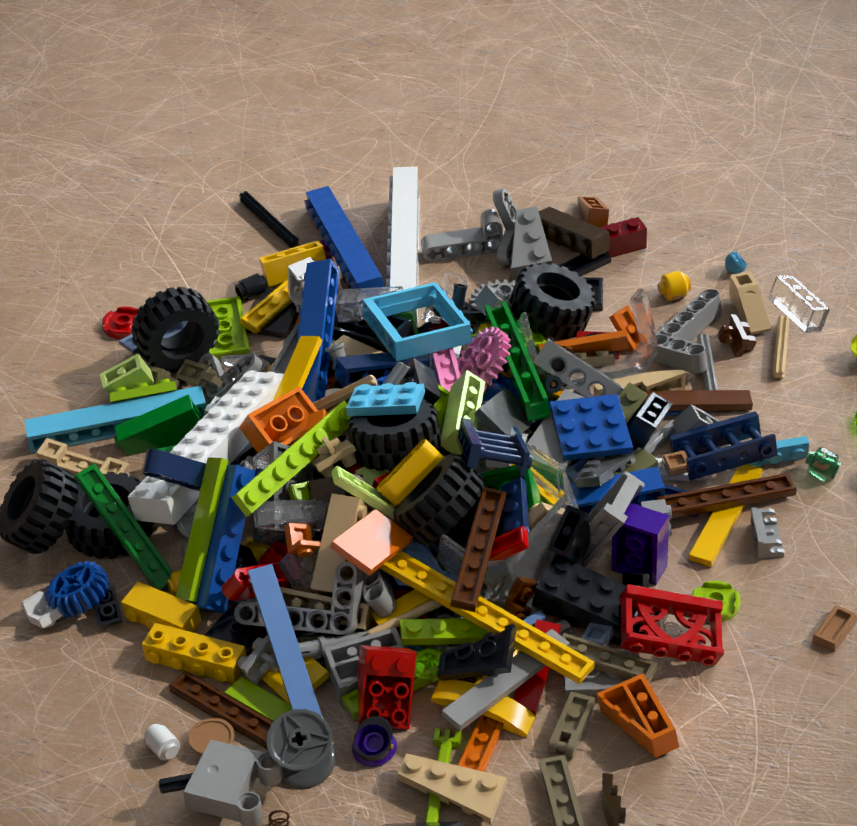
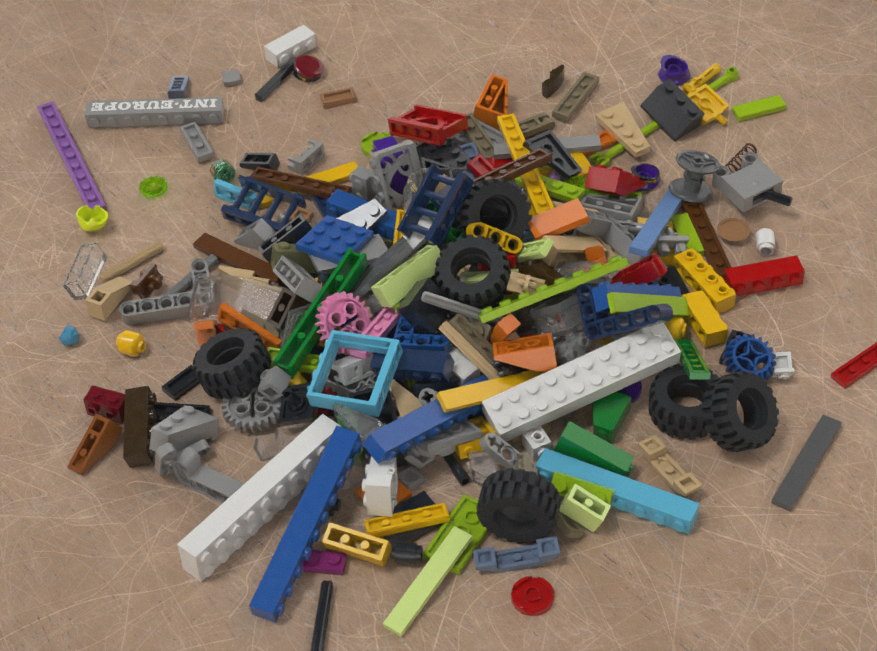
camera: 140 degrees left, 5 degrees up
(131, 698) = (765, 275): none -> red brick
(214, 278) = (427, 581): none -> yellowish green tile
(385, 399) = (462, 280): medium azure plate -> none
(806, 503) = (265, 160): none -> black slope

